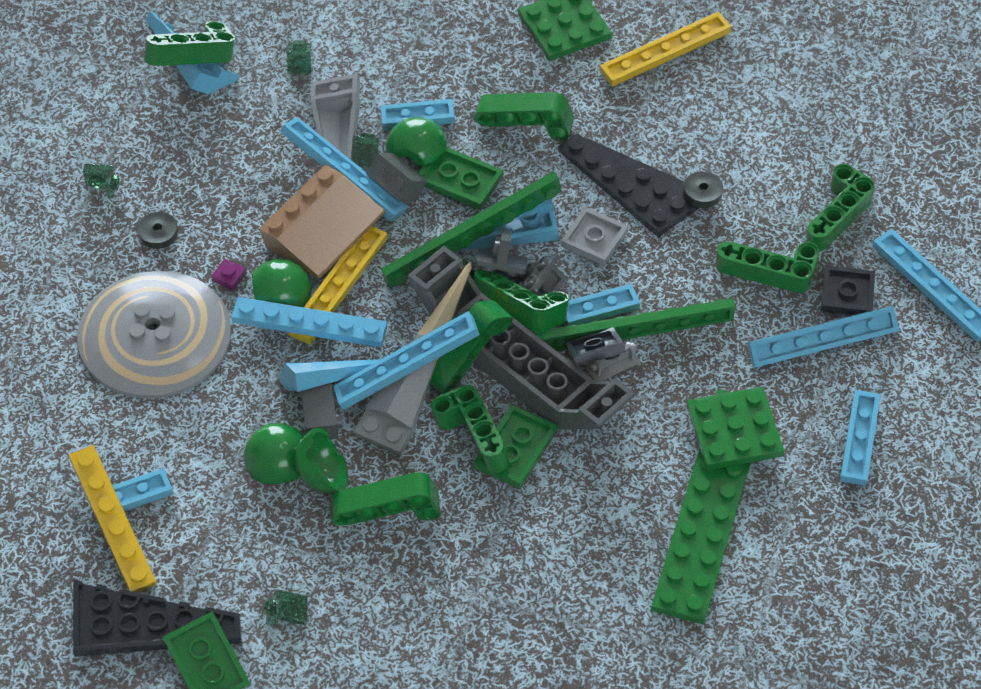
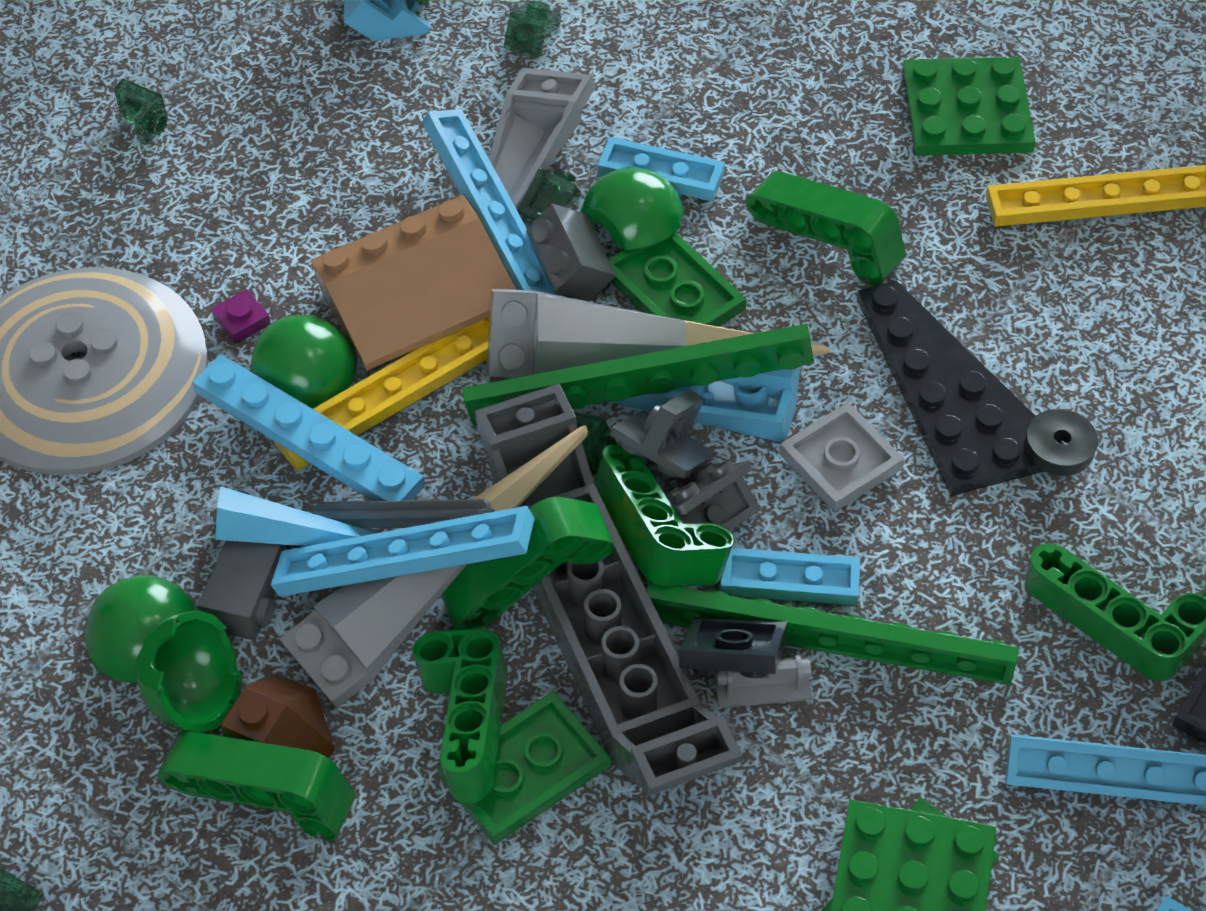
camera: 25 degrees right, 0 degrees up
(157, 239) = (181, 227): pearl dark grey piece -> none
(377, 466) = (279, 714): none -> reddish brown slope
(390, 342) = (400, 513): none -> dark grey axle
(413, 223) = (552, 332): none -> light grey plate

